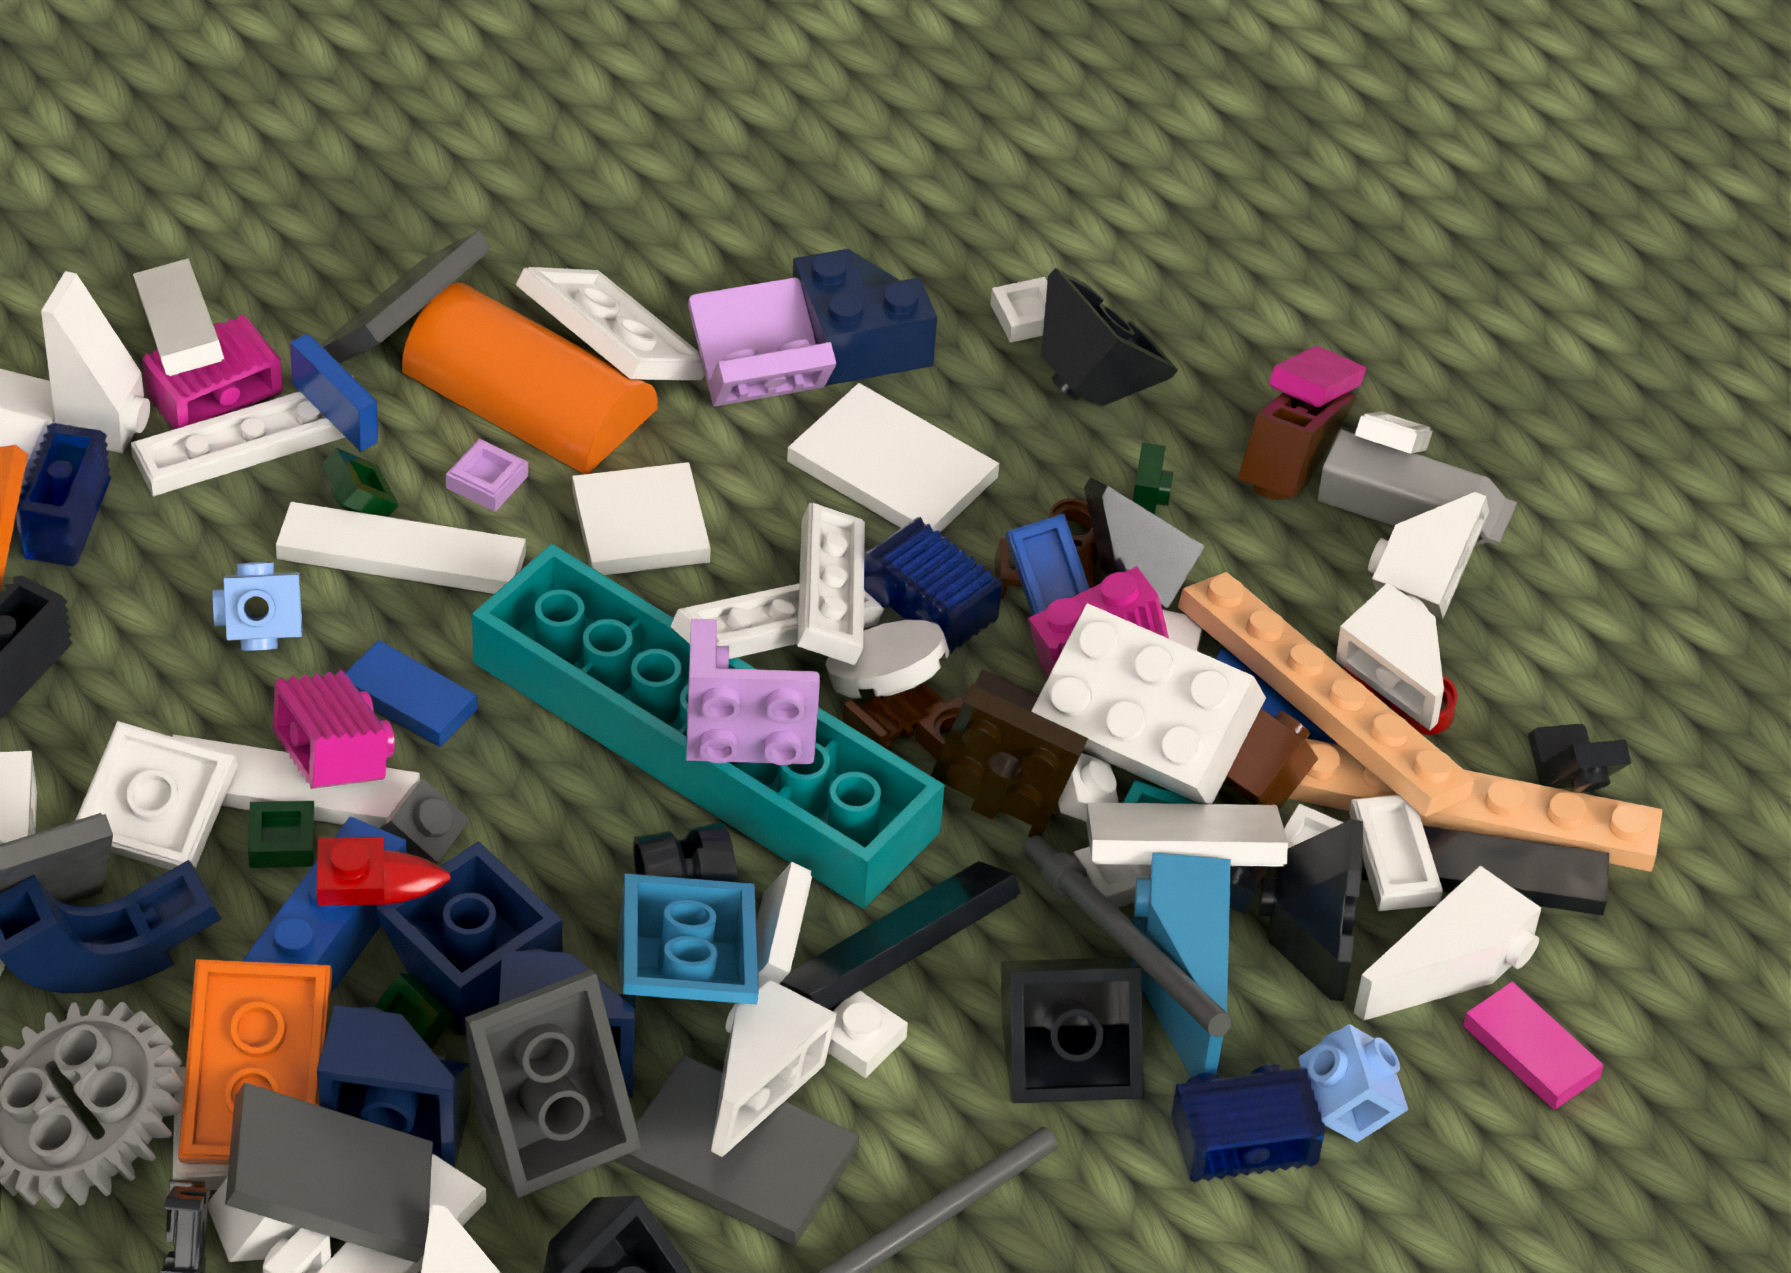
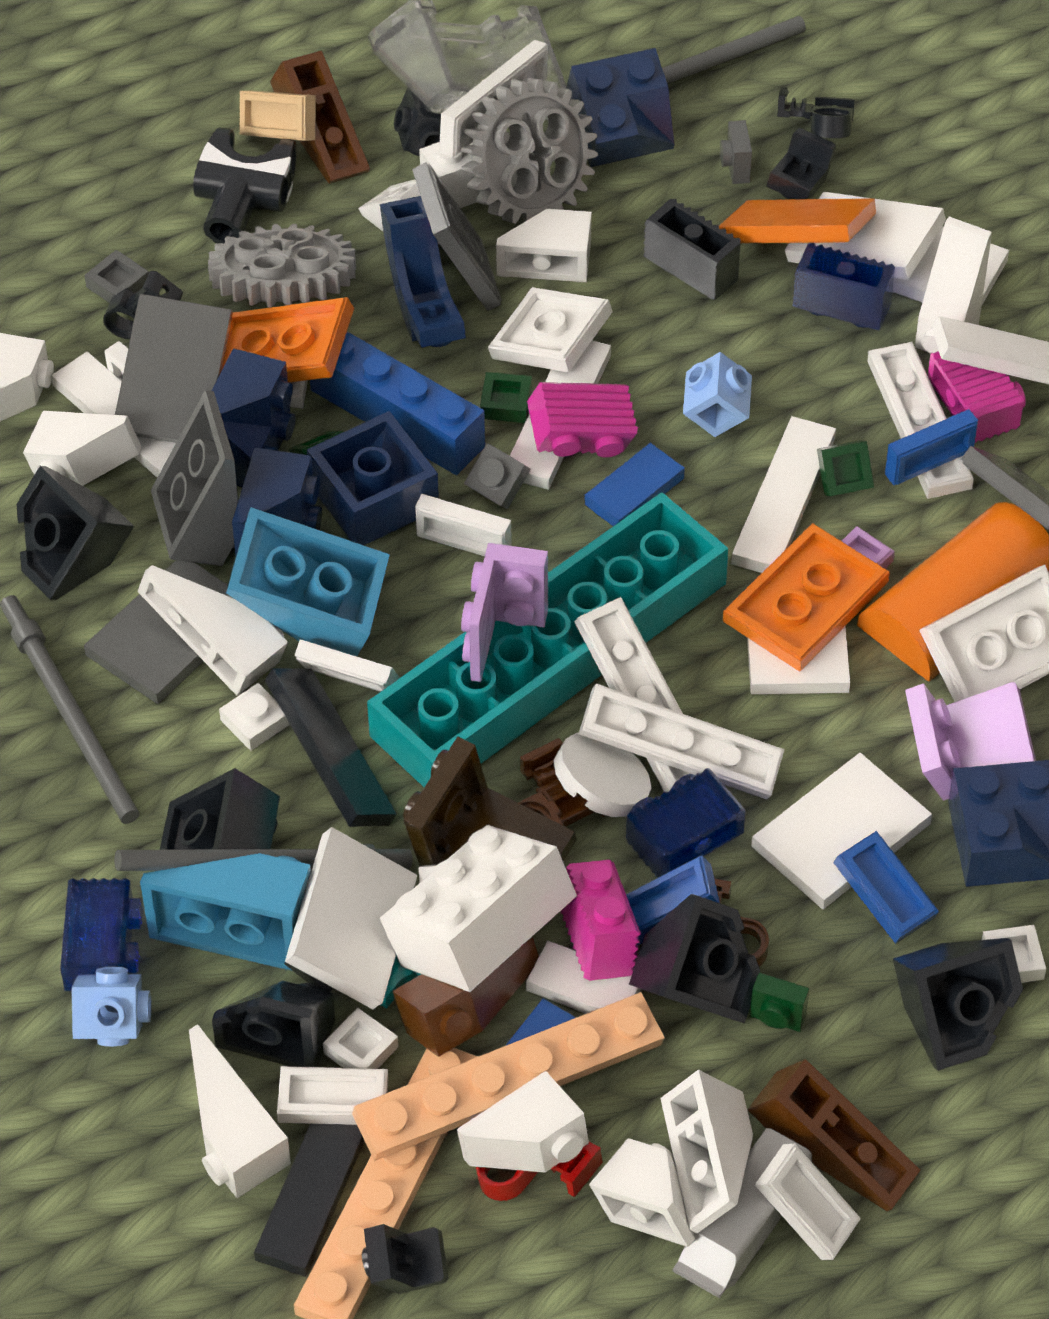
camera: 105 degrees right, 5 degrees up
(367, 874) = (415, 406): red plate -> none
(527, 829) = (460, 525): none -> white tile
(575, 501) = (806, 597): none -> orange tile
(701, 854) = (413, 616): black wheel -> none
(968, 413) = (886, 887): none -> blue tile
(1317, 376) = (895, 1161): dark pink tile -> none
(1373, 501) = (709, 1145): none -> white slope
(1533, 1045) = (129, 1164): dark pink tile -> none

